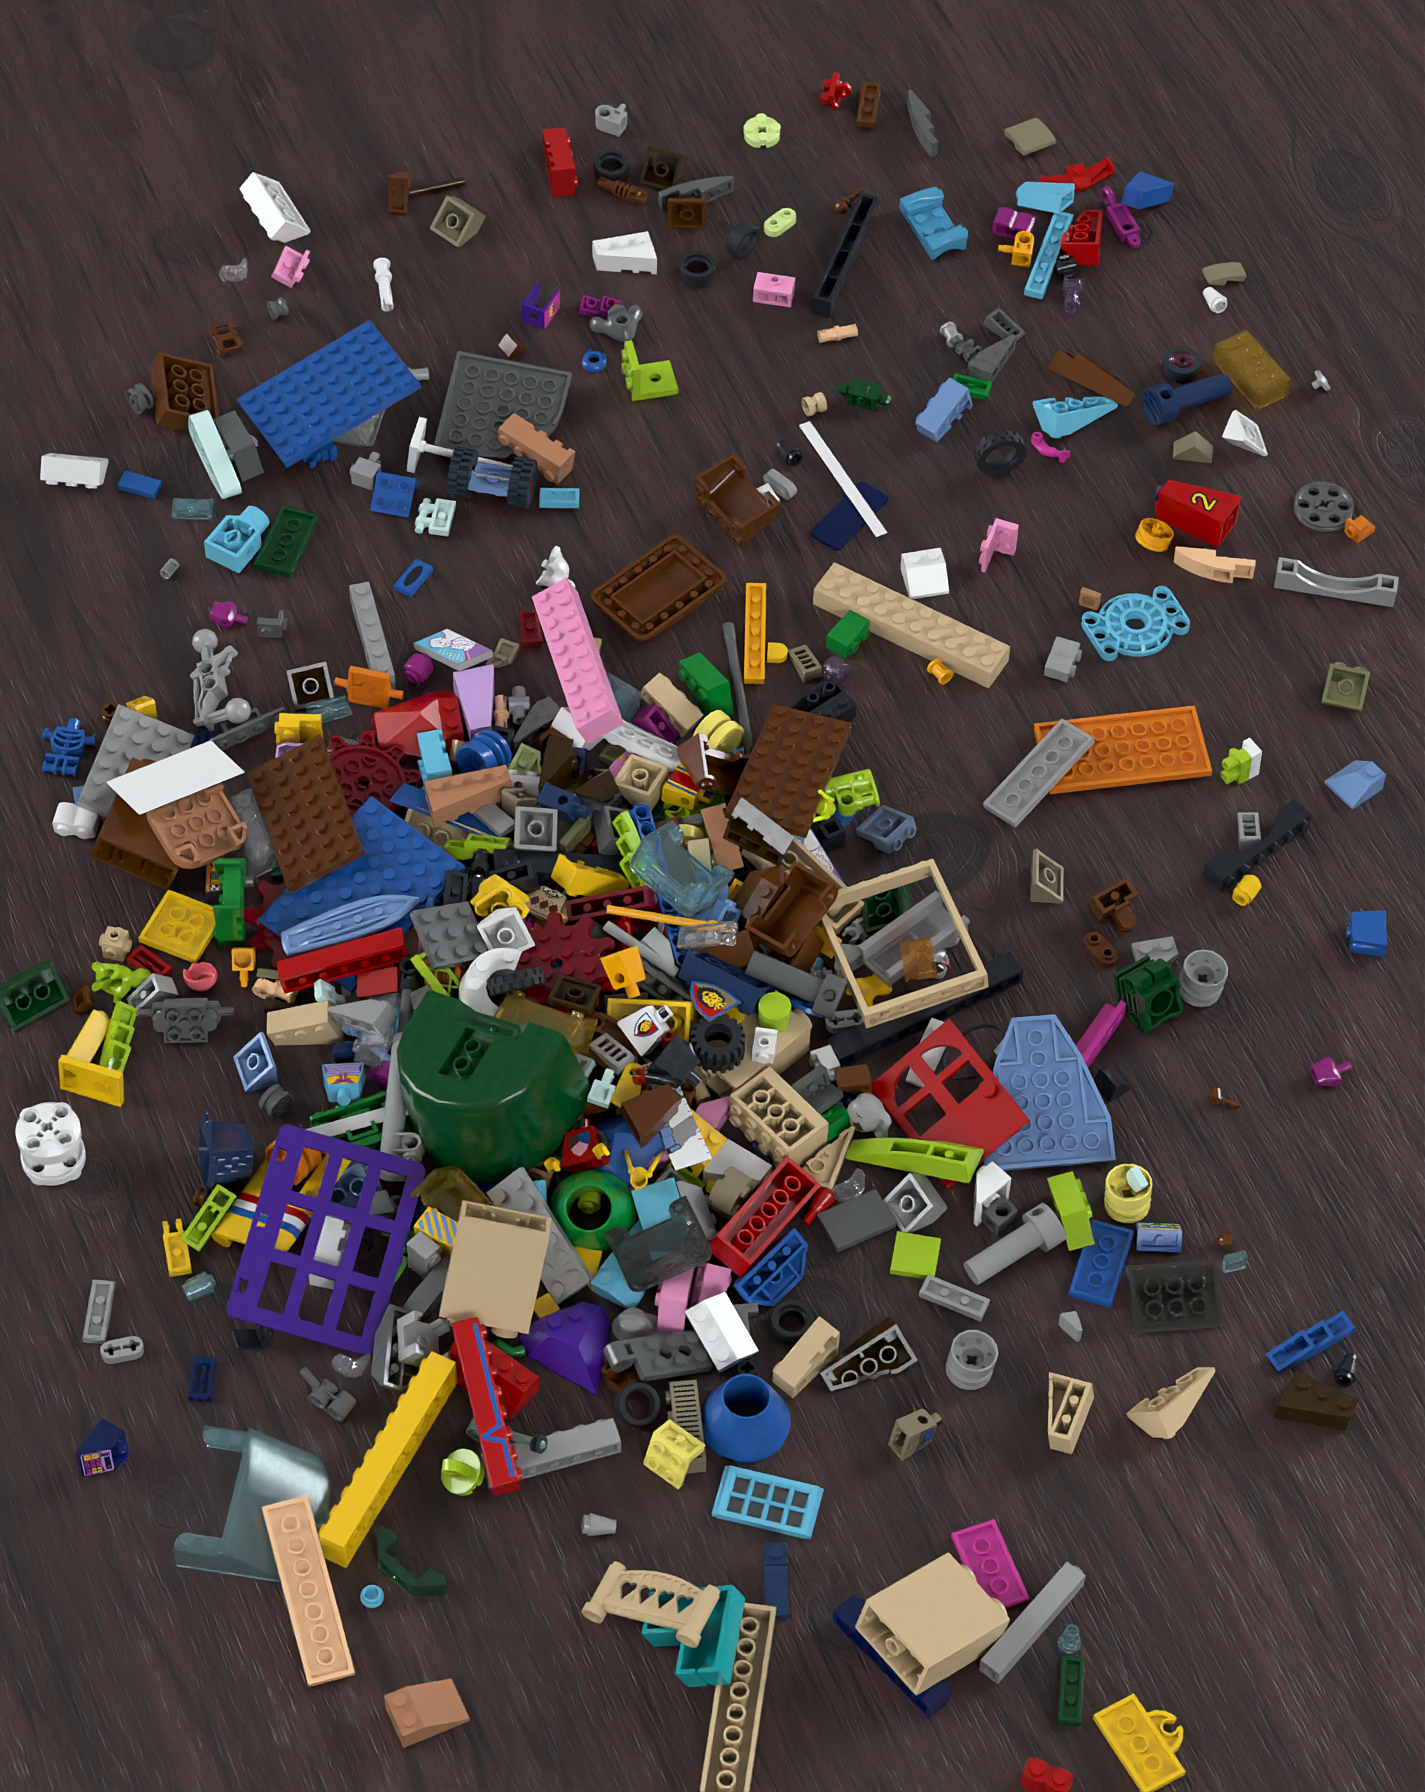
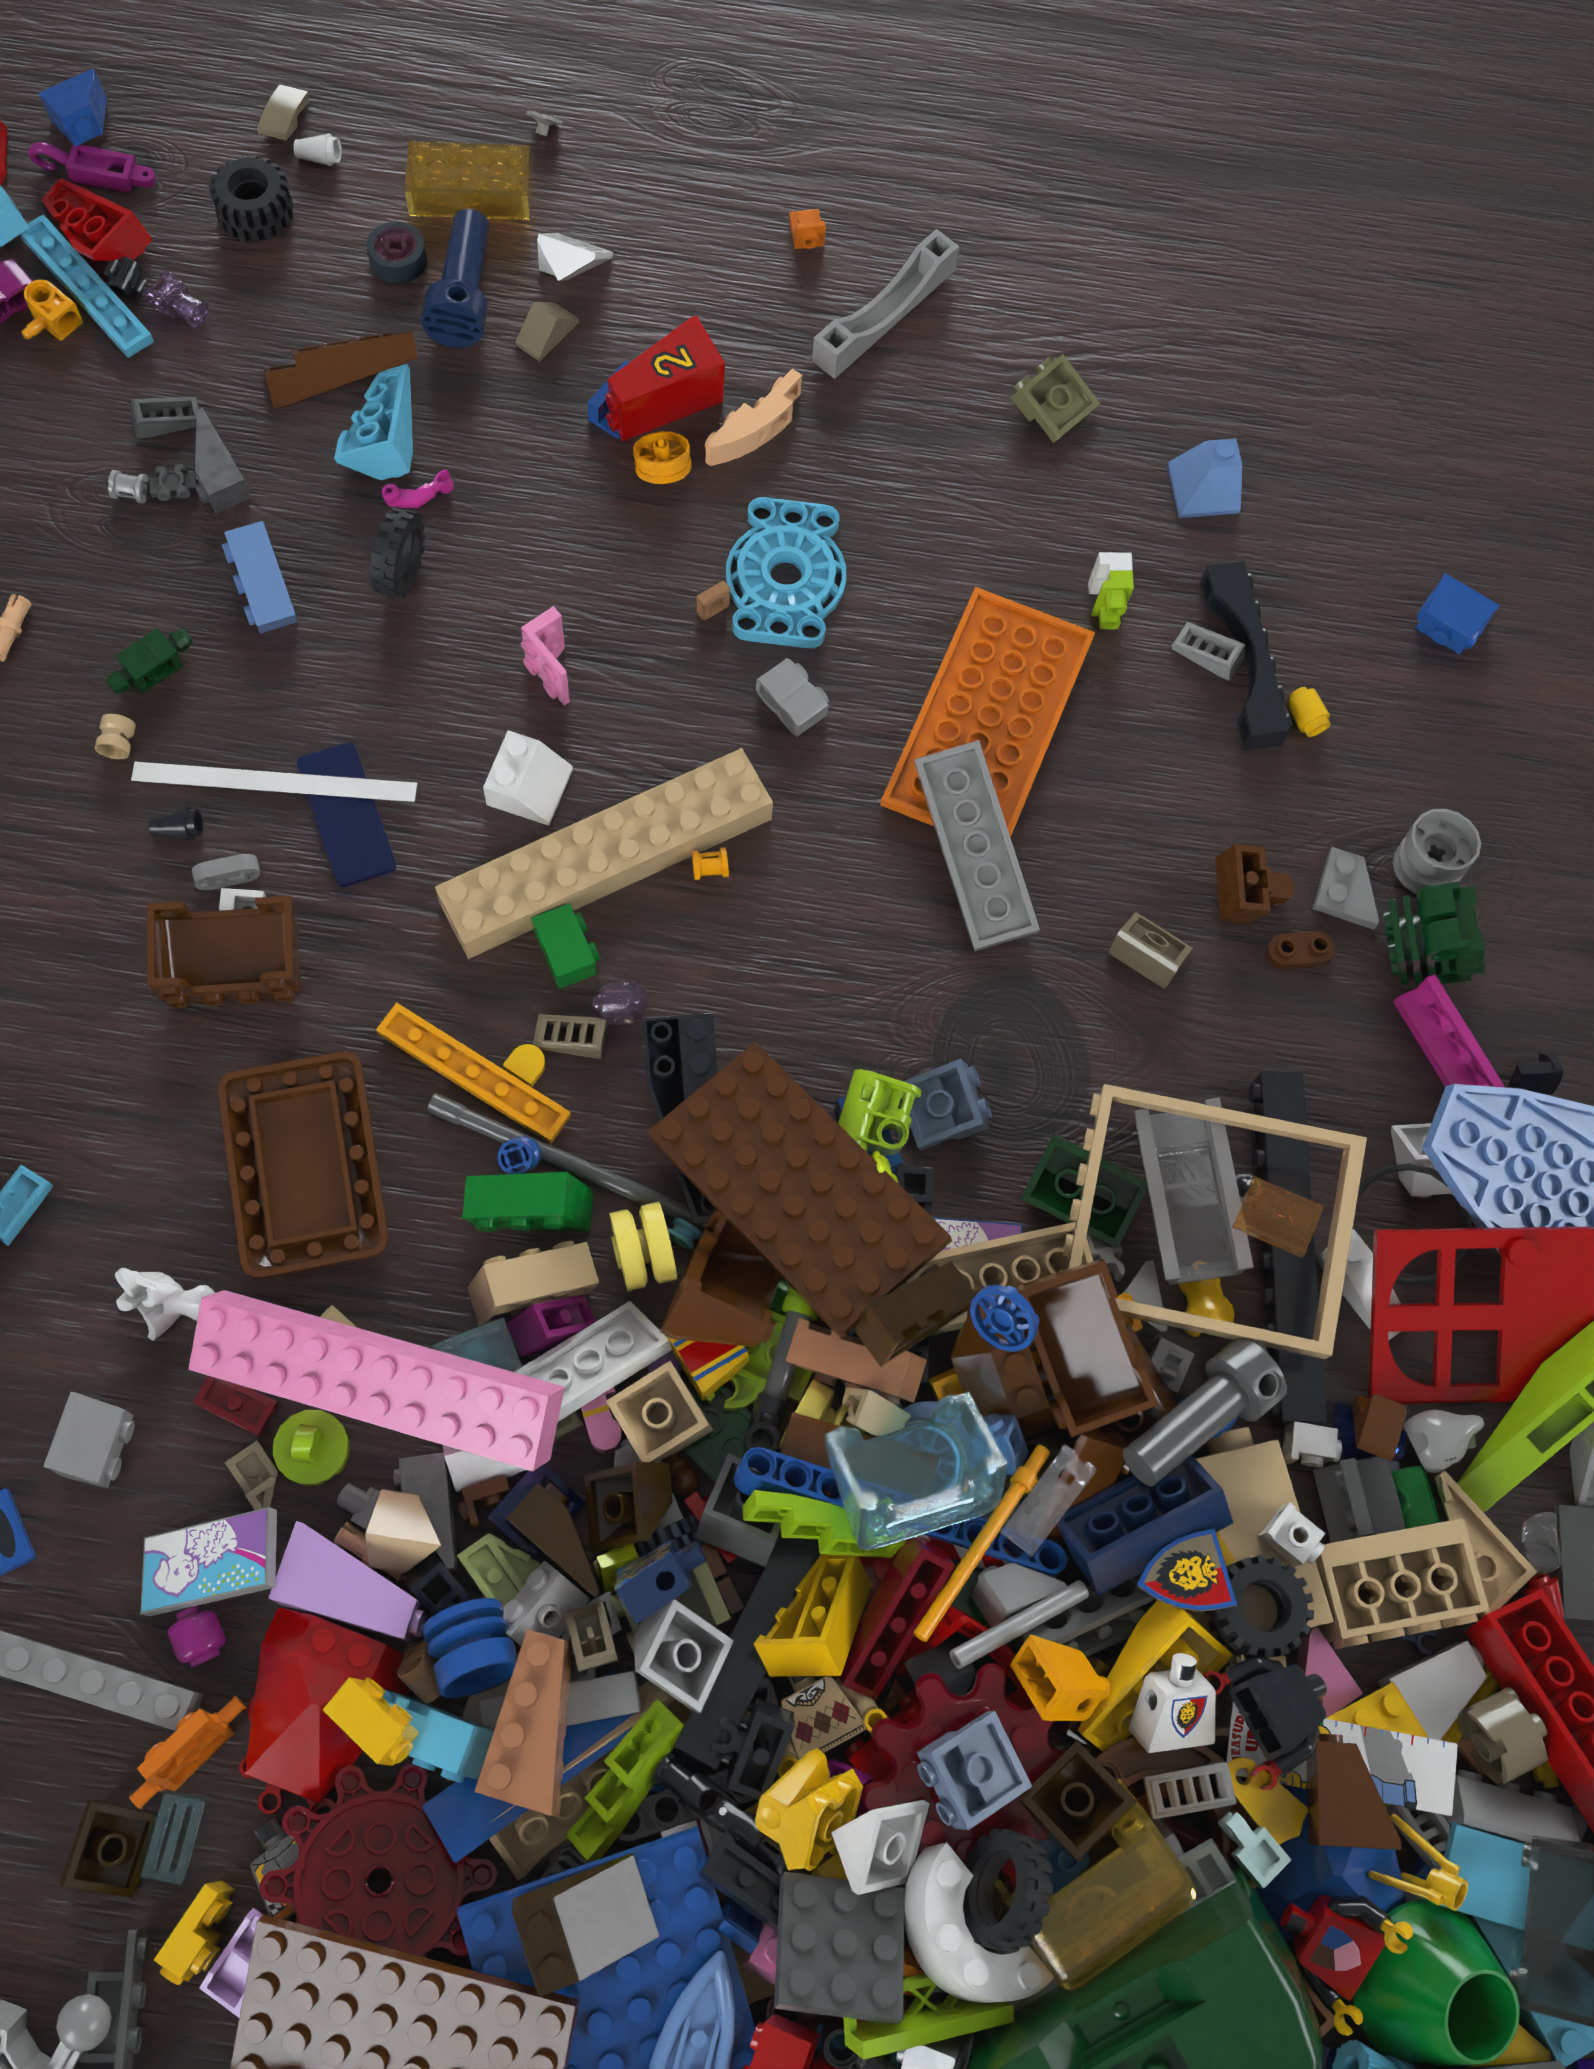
camera: 65 degrees left, 15 degrees up
(397, 837) = (583, 1923): none -> slope
(427, 733) = (371, 1721): none -> yellow brick
(474, 580) = (90, 1440): none -> light grey slope
(513, 708) = (399, 1532): none -> tan slope
(531, 667) = (311, 1447): none -> lime tile
(559, 947) = (973, 1772): none -> sand blue plate
(726, 666) = (525, 1152): none -> blue wheel
(774, 1011) = (1246, 1481): lime piece -> none
(779, 866) = (1004, 1317): none -> blue wheel
(975, 392) = (231, 512): green tile -> none
(1157, 288) = (246, 180): none -> black tyre
(1325, 500) = (731, 247): dark grey wedge -> none

